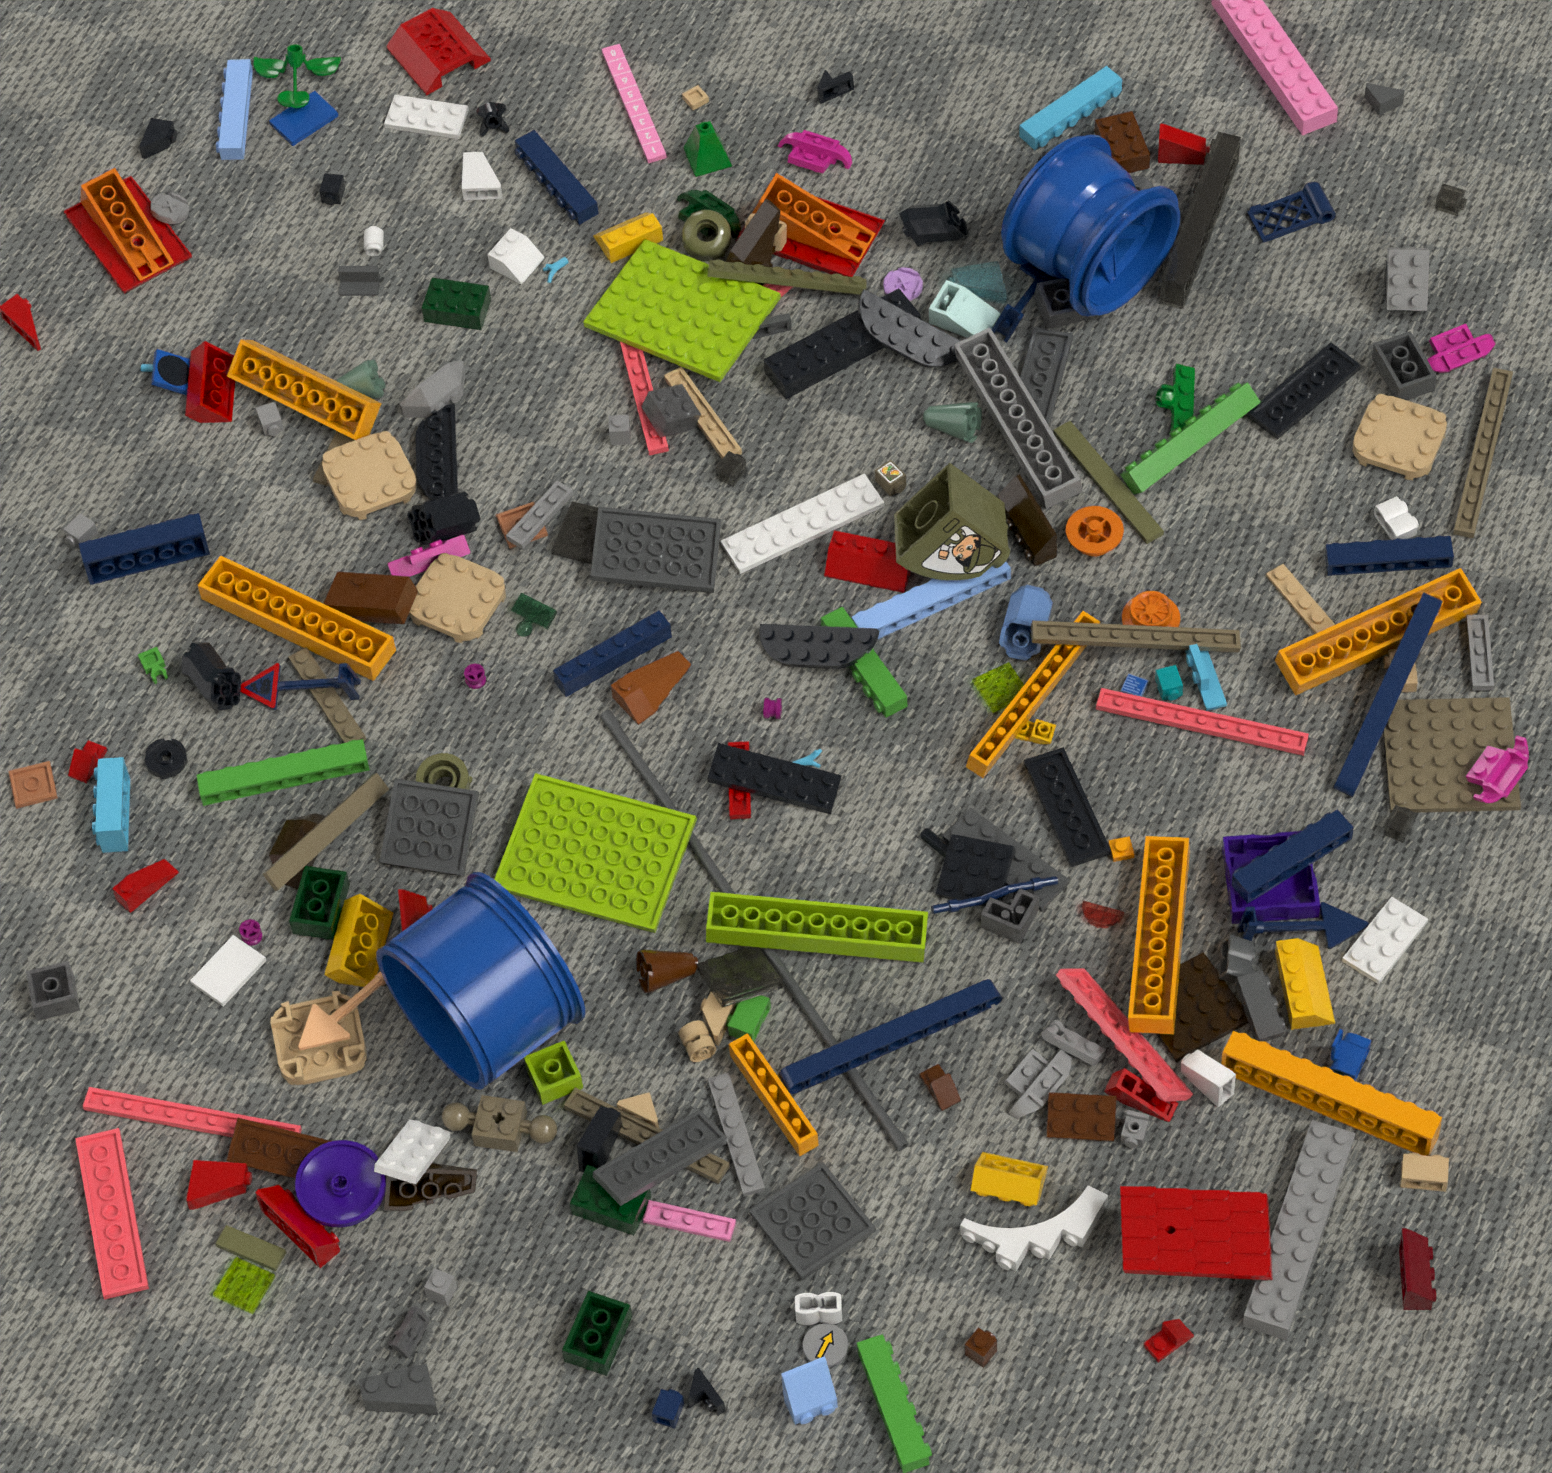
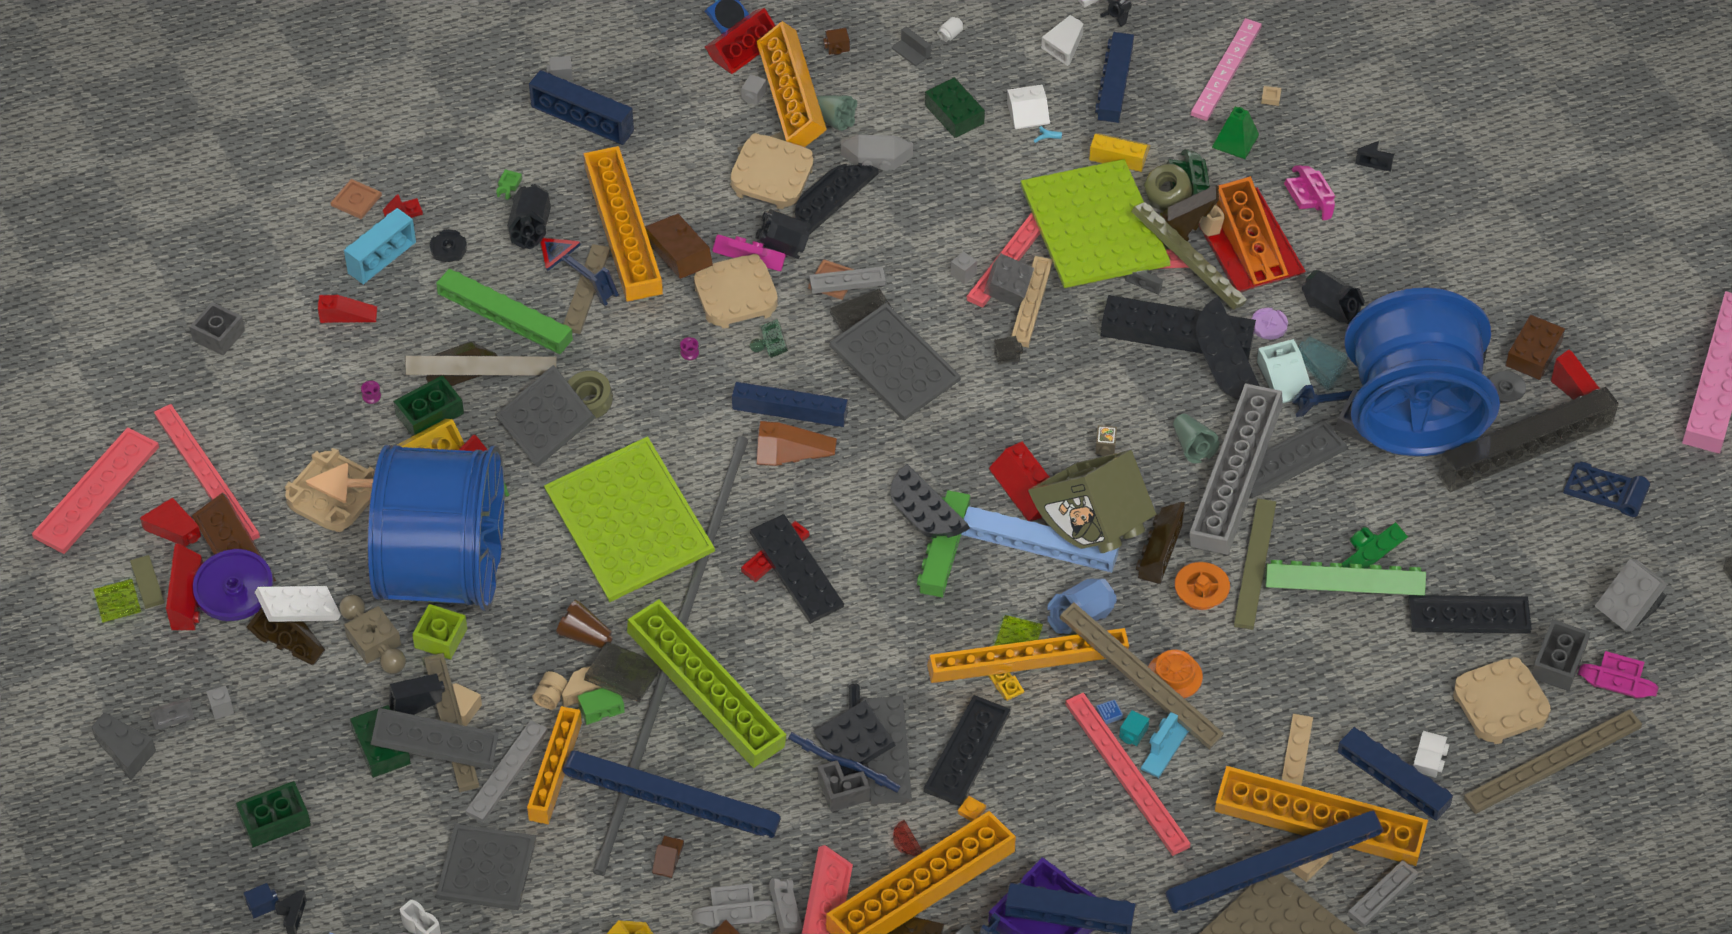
camera: 40 degrees right, 5 degrees down
(228, 970) = (332, 404): white tile -> none
(291, 324) = (836, 41): none -> reddish brown brick
(689, 1221) = (414, 799): bright pink tile -> none
(772, 708) = (850, 523): magenta wheel -> none
(802, 523) = (1014, 423): white plate -> none
(809, 760) = (836, 576): medium azure bar -> none
(1070, 108) = (1528, 296): medium azure brick -> none

